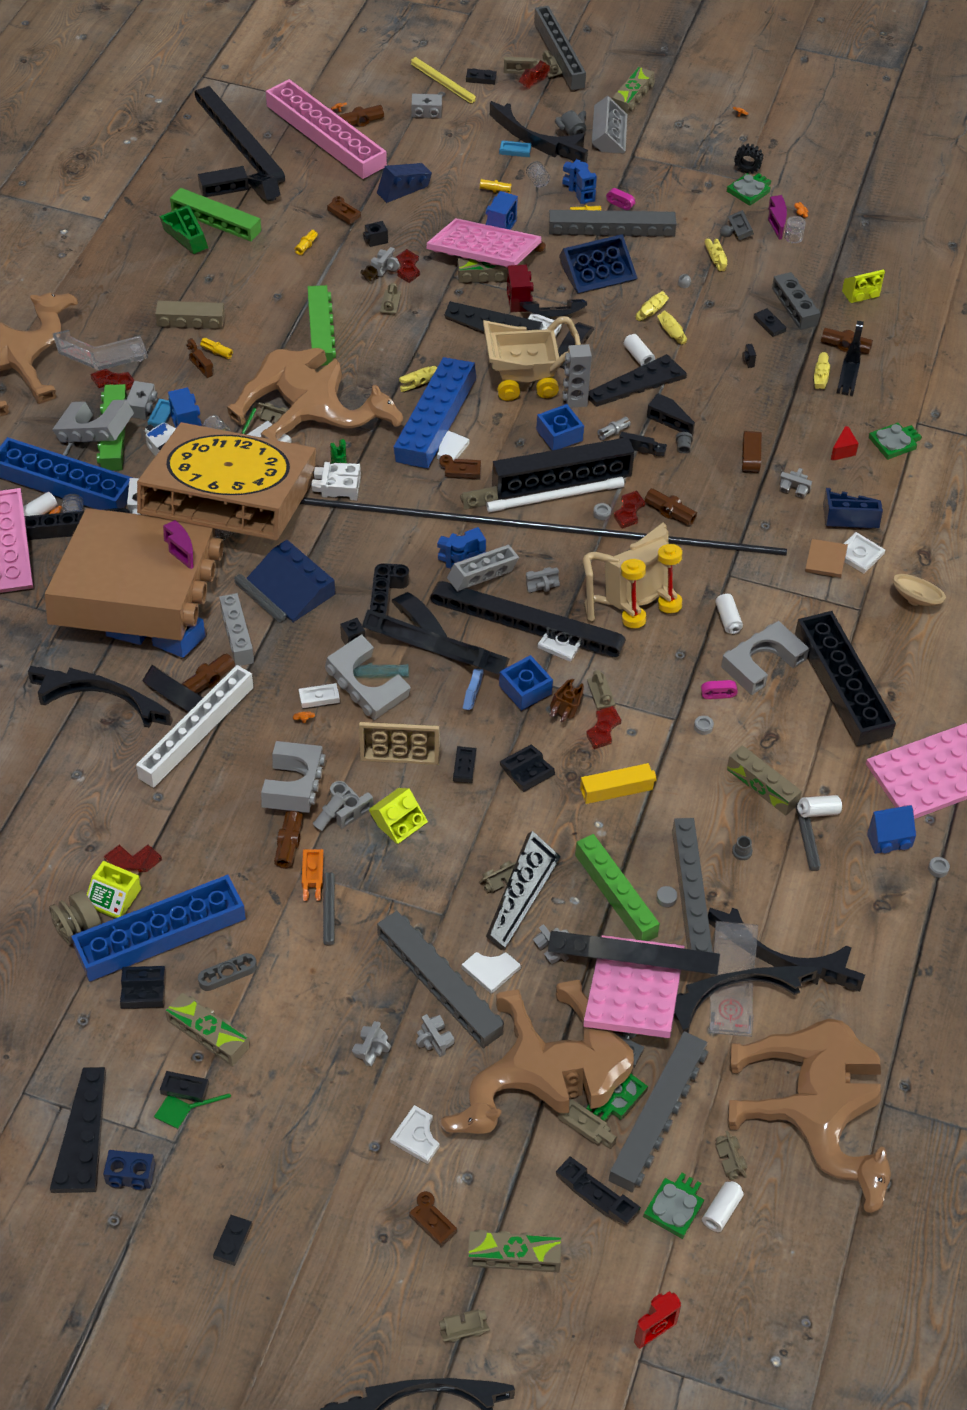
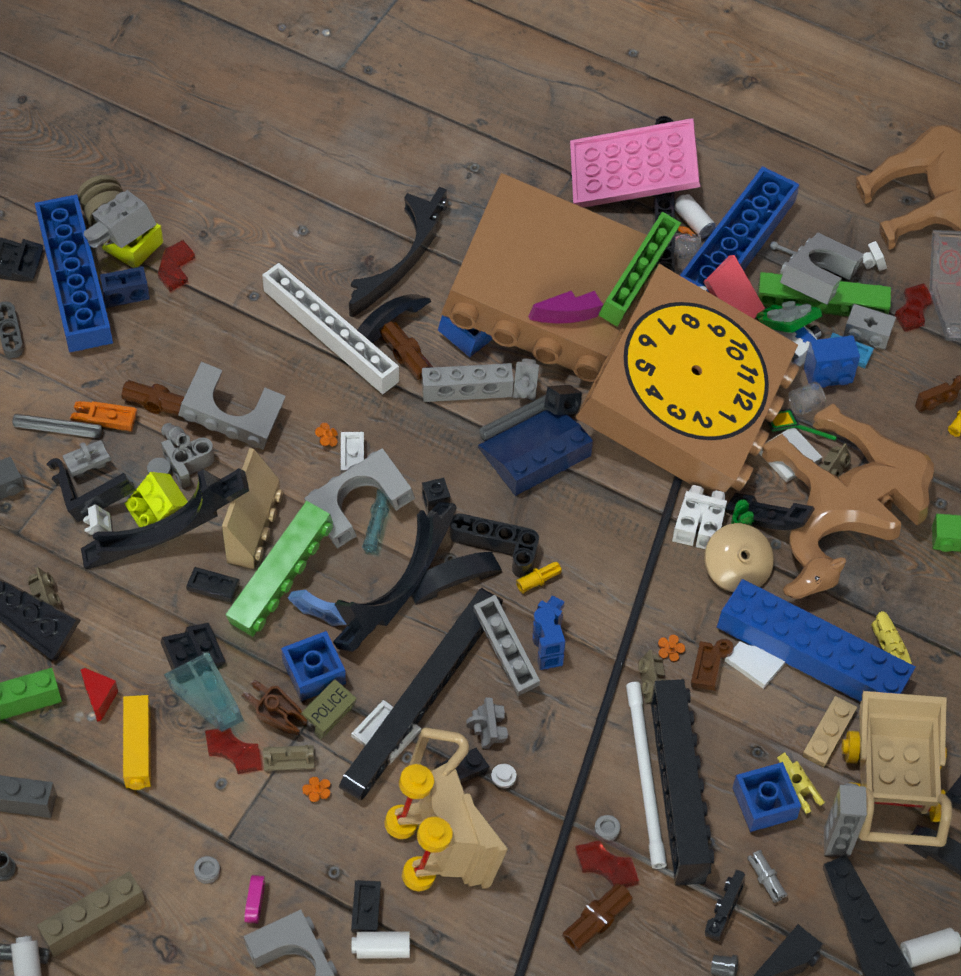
camera: 100 degrees right, 5 degrees up
(66, 398) = (874, 257): none -> white tile
(108, 885) = (120, 221): none -> light grey brick
(122, 468) = (733, 287): none -> coral tile
(127, 506) = (639, 269): none -> bright green brick
(143, 441) = (788, 316): none -> piece
(169, 878) = (124, 286): none -> dark blue brick
(231, 586) = (526, 379): none -> light grey hips
(246, 565) = (563, 399): none -> black brick
(332, 433) = (773, 516): none -> black slope
(359, 825) = (159, 465): none -> light grey tile
(364, 872) = (86, 458): none -> light grey hips
(371, 455) = (725, 561): none -> tan dish
(414, 572) = (538, 577): none -> yellow axle
(415, 755) = (202, 507): none -> black slope
(415, 866) = (101, 496): none -> black hinge
(423, 852) = (98, 520): none -> white tile
(446, 714) = (280, 568): none -> bright green brick
(450, 491) = (670, 648): none -> orange plant
(495, 406) = (829, 732): none -> tan plate
(531, 420) = (803, 788): none -> light yellow hinge
(560, 666) = (329, 708): none -> olive panel
(566, 741) = (205, 691): none -> clear light blue wedge
(577, 588) = (470, 766): none -> black plate
(578, 569) = (503, 775): none -> white plate
(583, 817) = (100, 691): none -> red slope
(620, 673) = (316, 788): none -> orange plant
(703, 628) = (366, 906): none -> black plate

